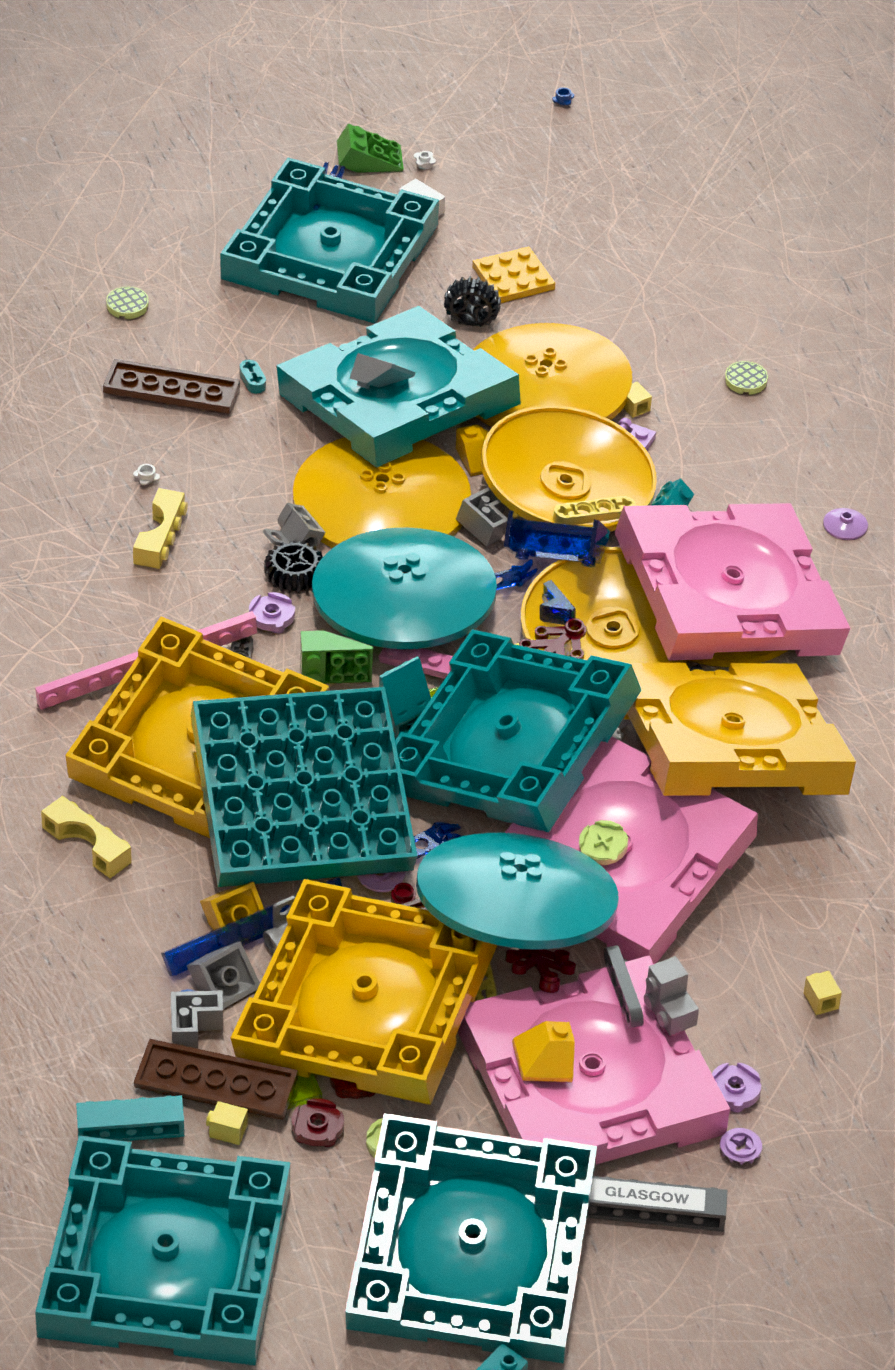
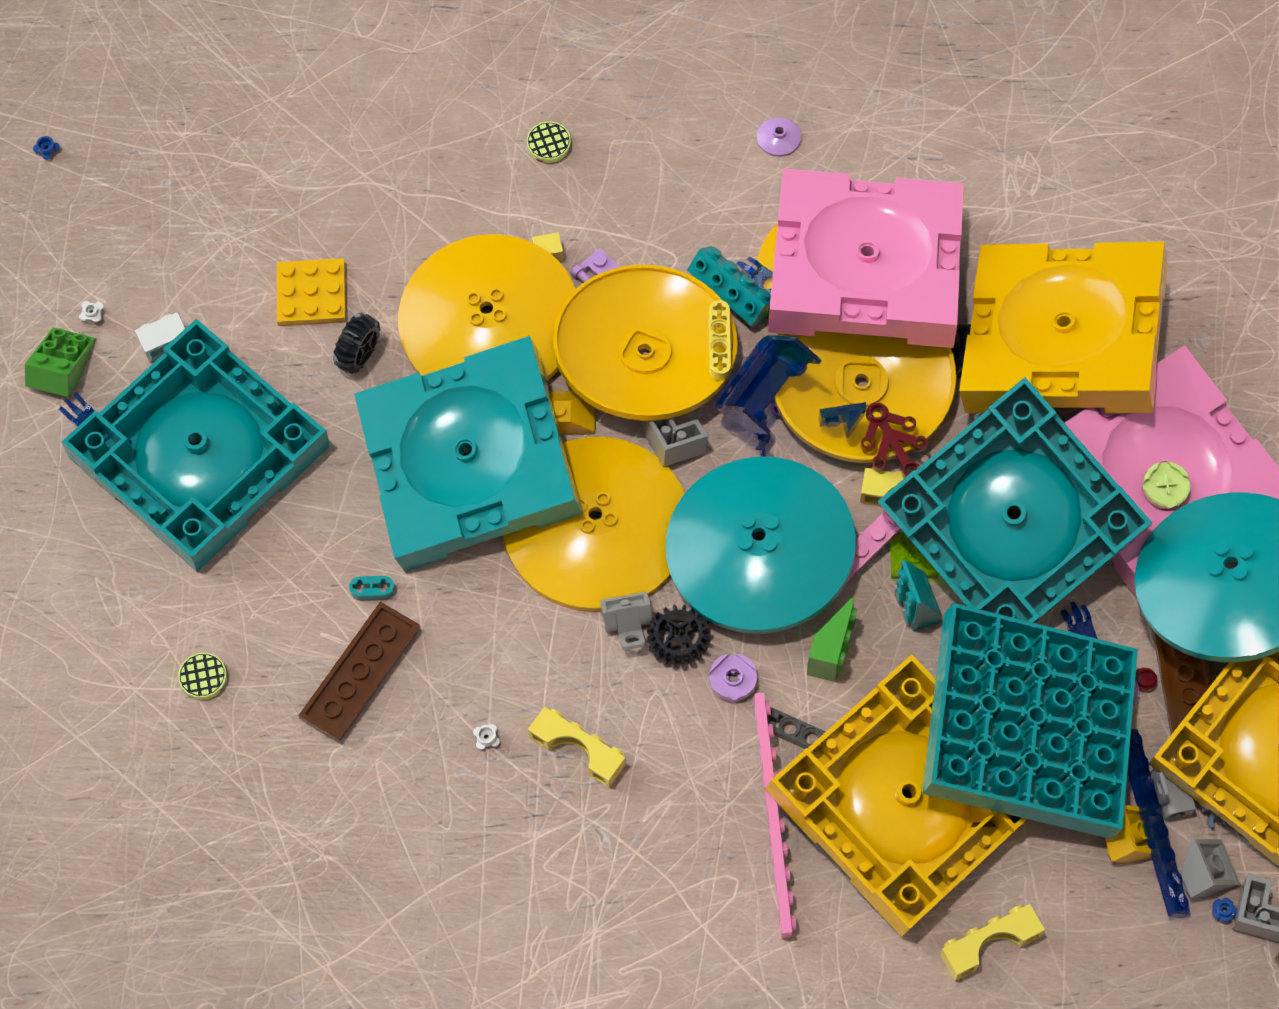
camera: 65 degrees left, 20 degrees up
(377, 372) = (466, 461): light grey slope -> none

